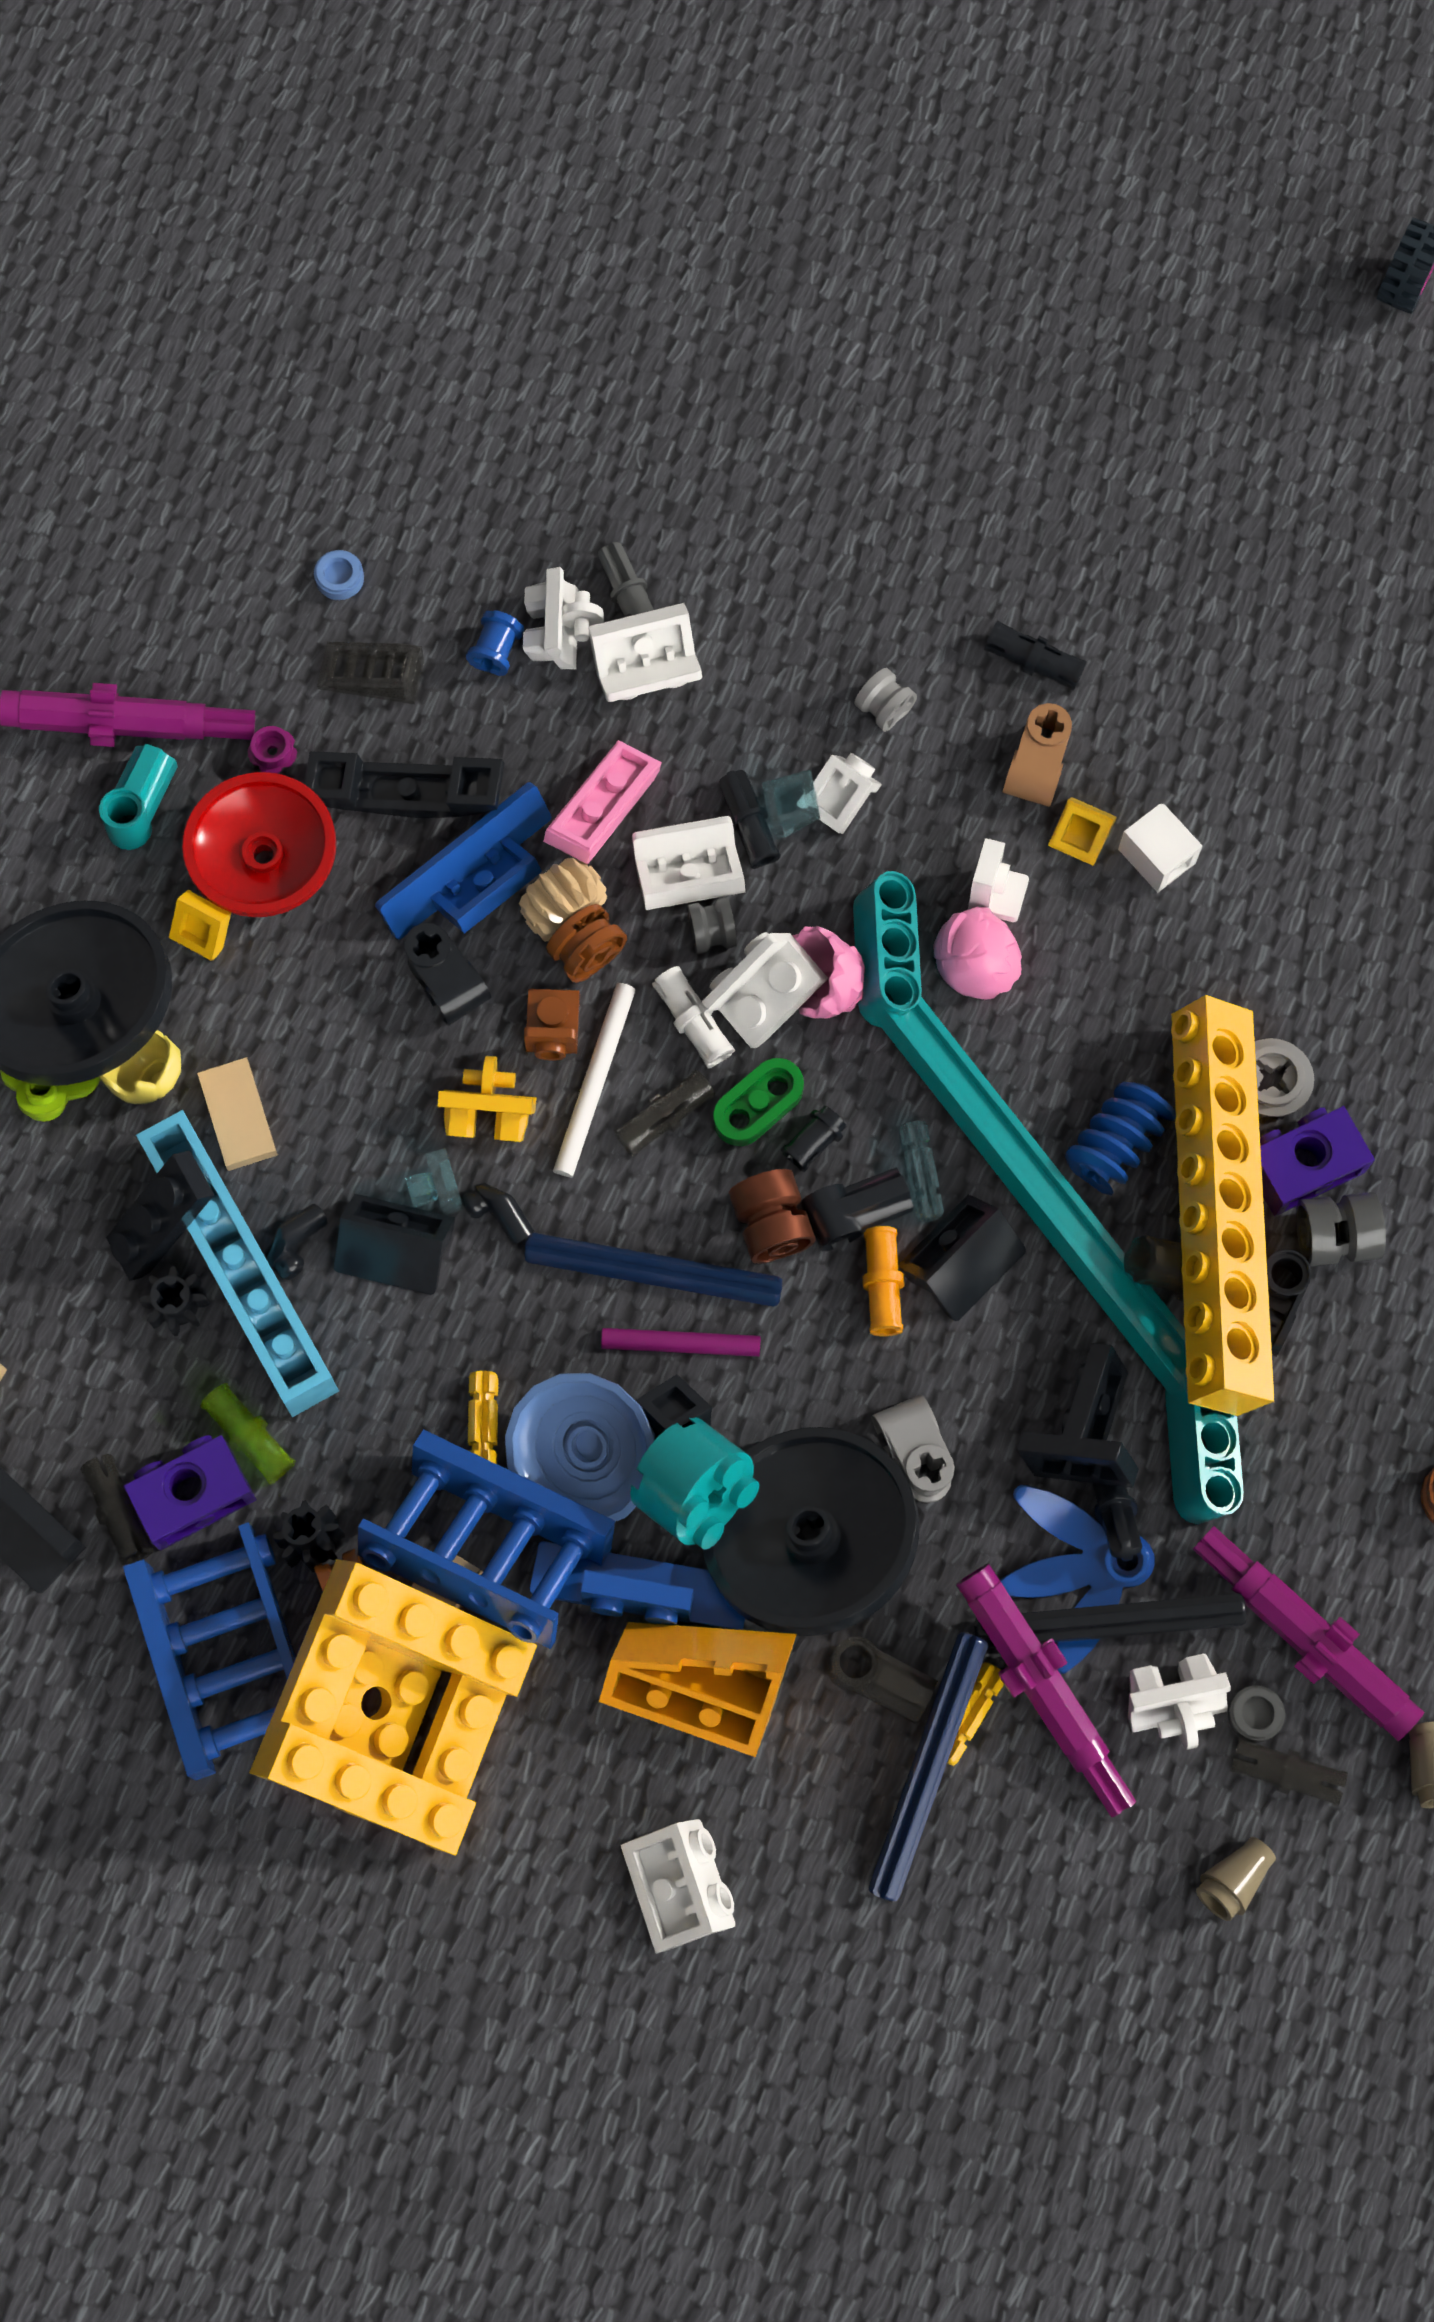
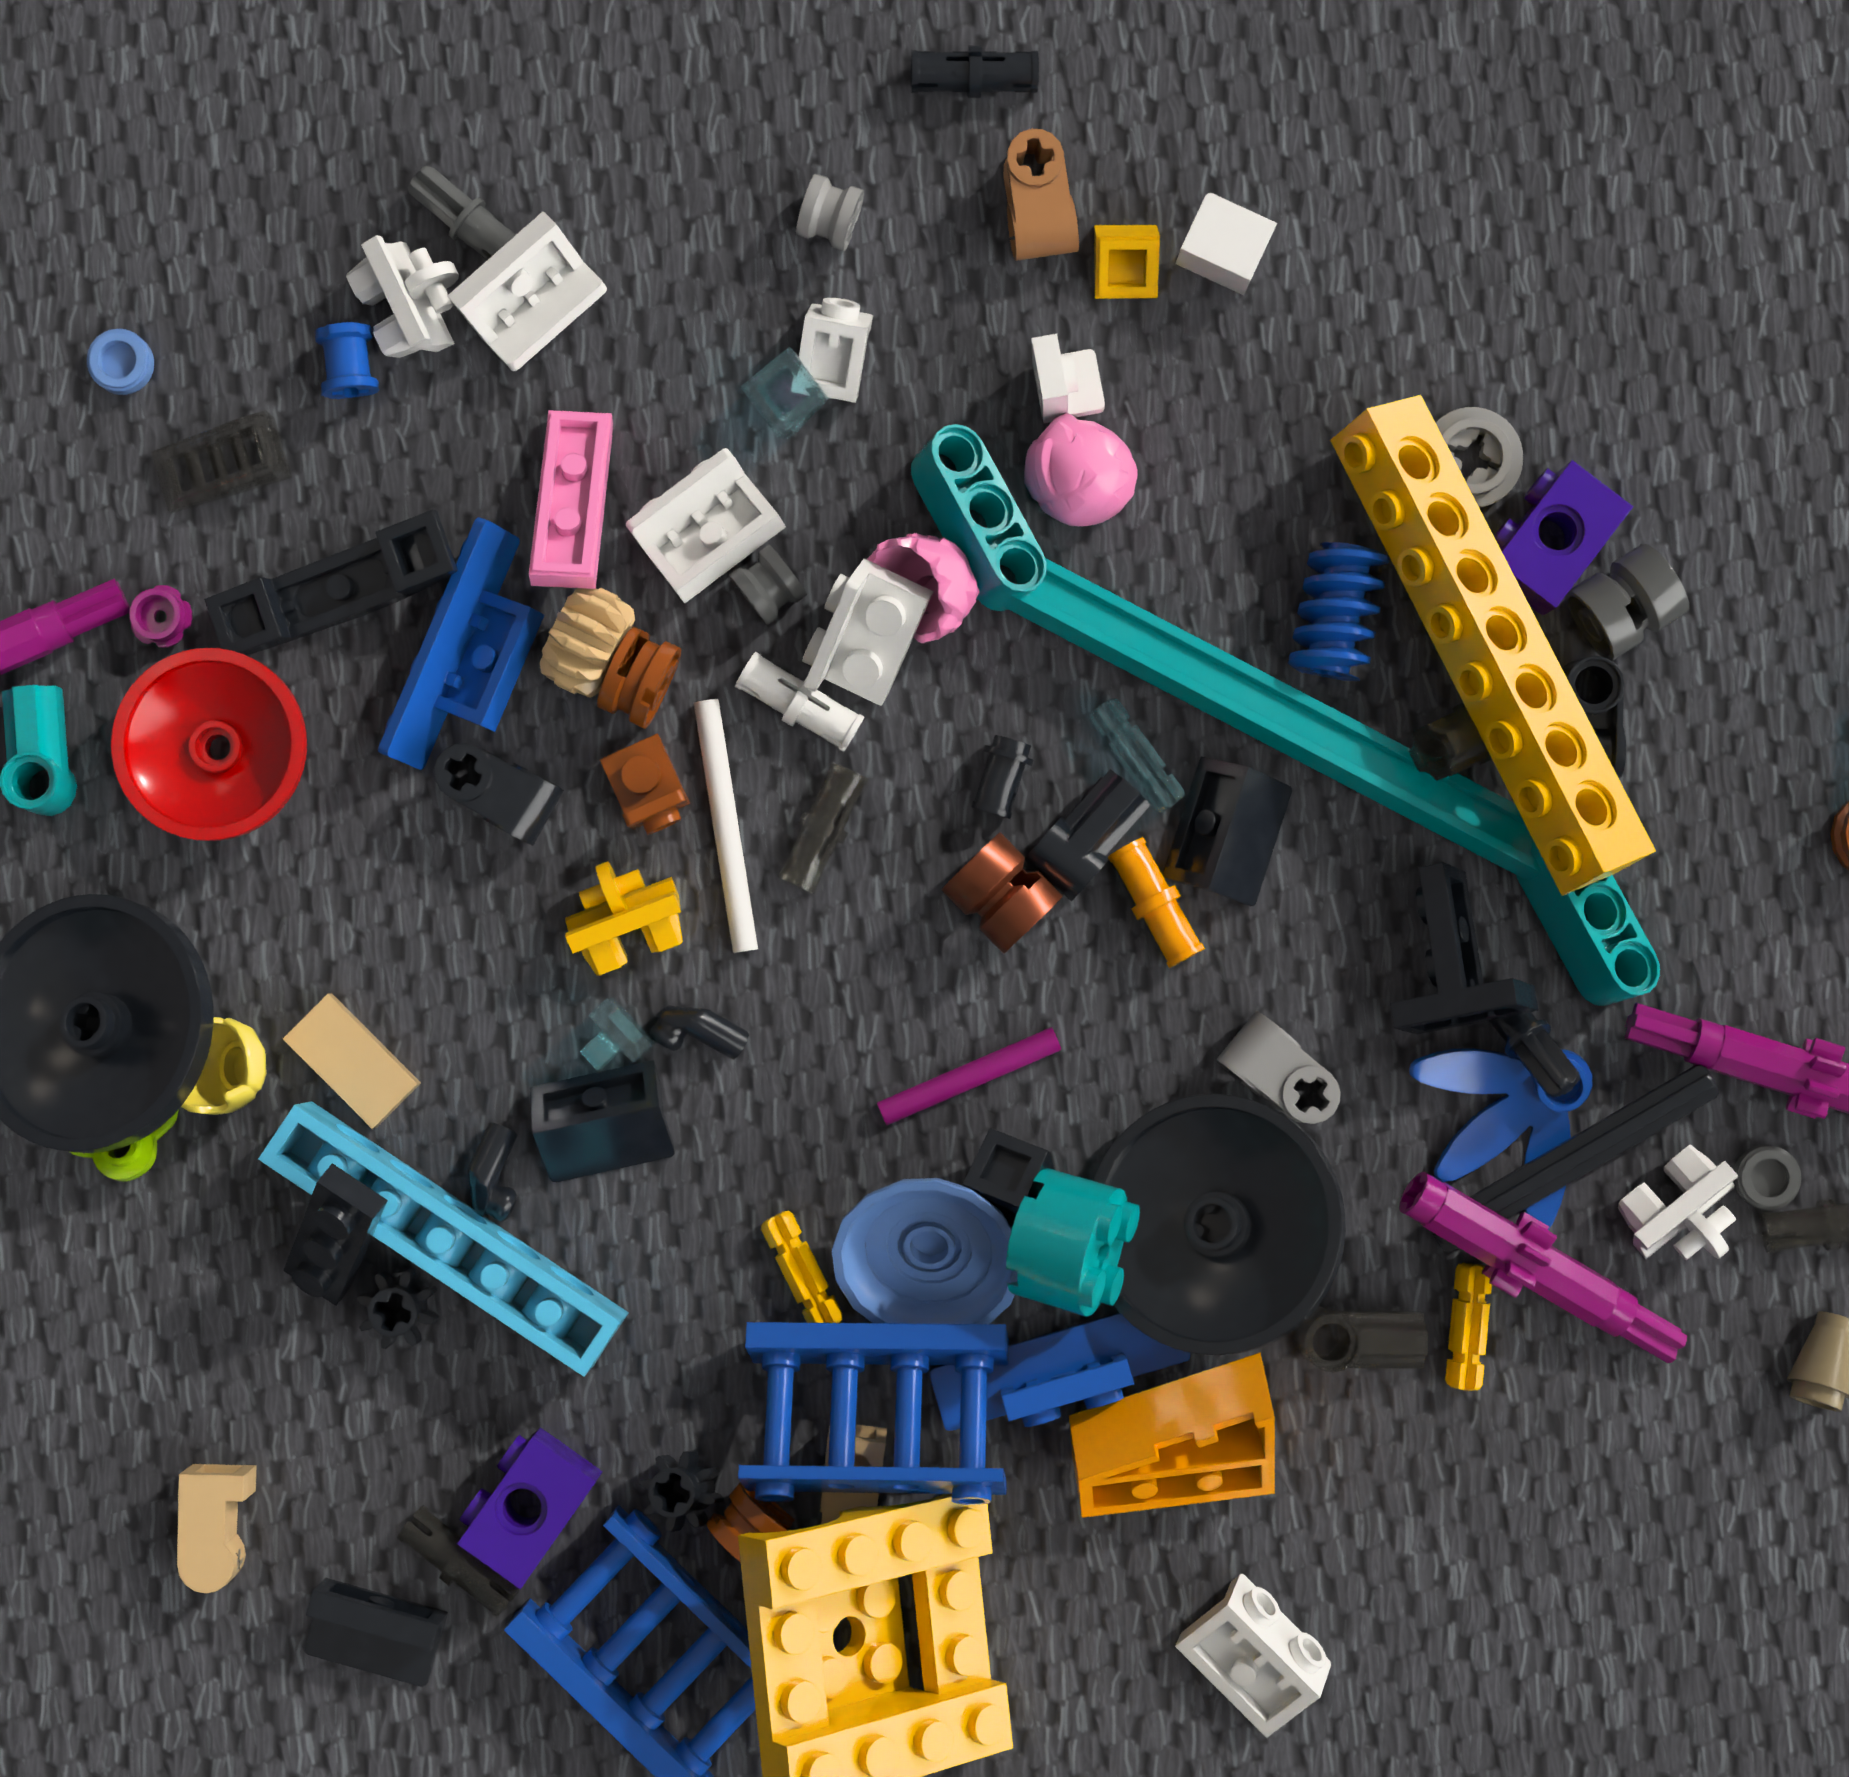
camera: 25 degrees left, 15 degrees up
(199, 925) = (192, 868): yellow plate -> none
(247, 1433) = (556, 1410): clear neon green pin -> none
(653, 1269) = (899, 1011): dark blue axle -> none
(749, 819) = (744, 433): black axle -> none
(757, 1103) = (919, 765): green plate -> none
(928, 1767) = (1456, 1408): dark blue axle -> none

